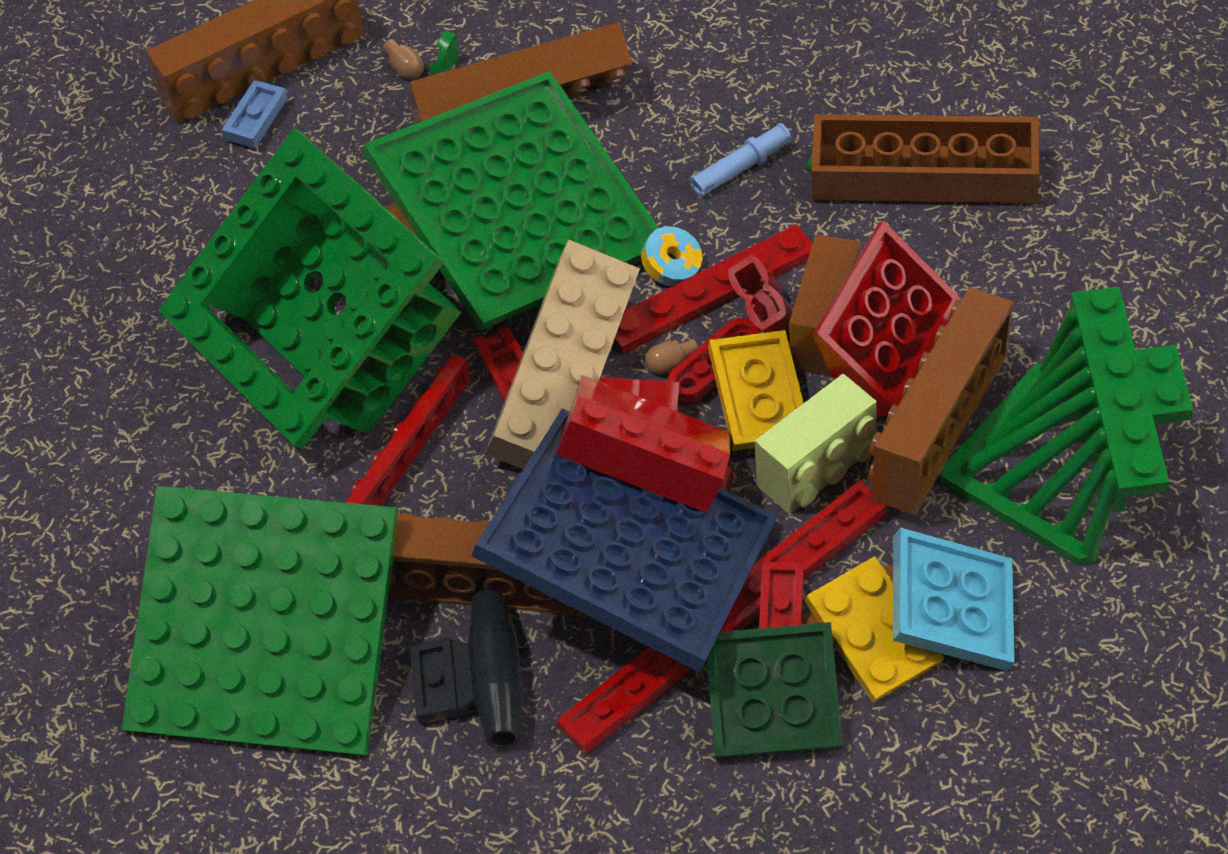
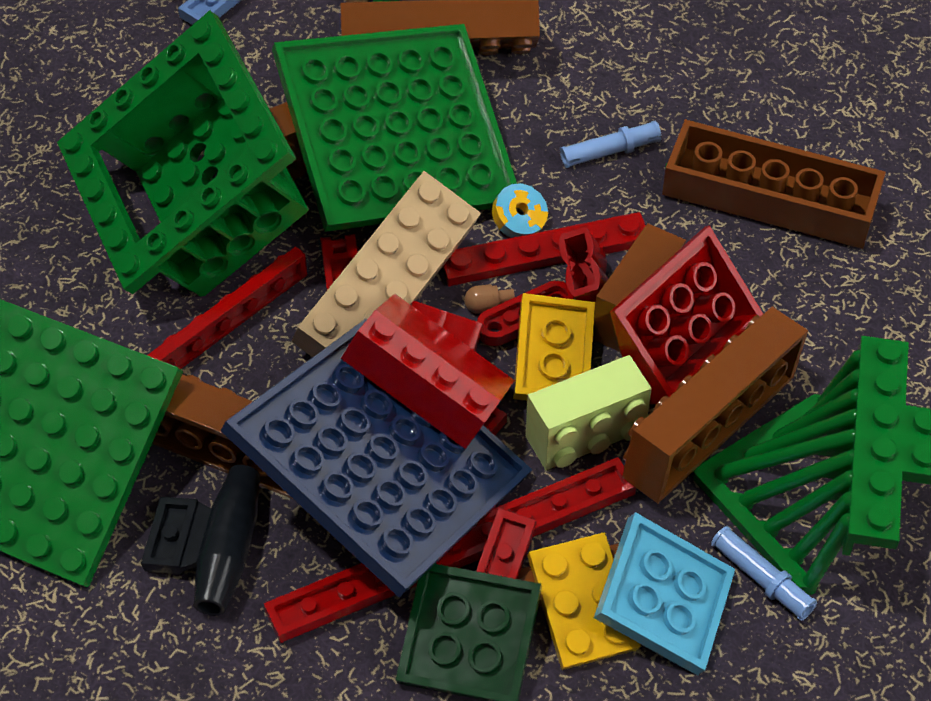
camera: 10 degrees right, 0 degrees up
(1054, 560) = (776, 583): none -> light blue pin

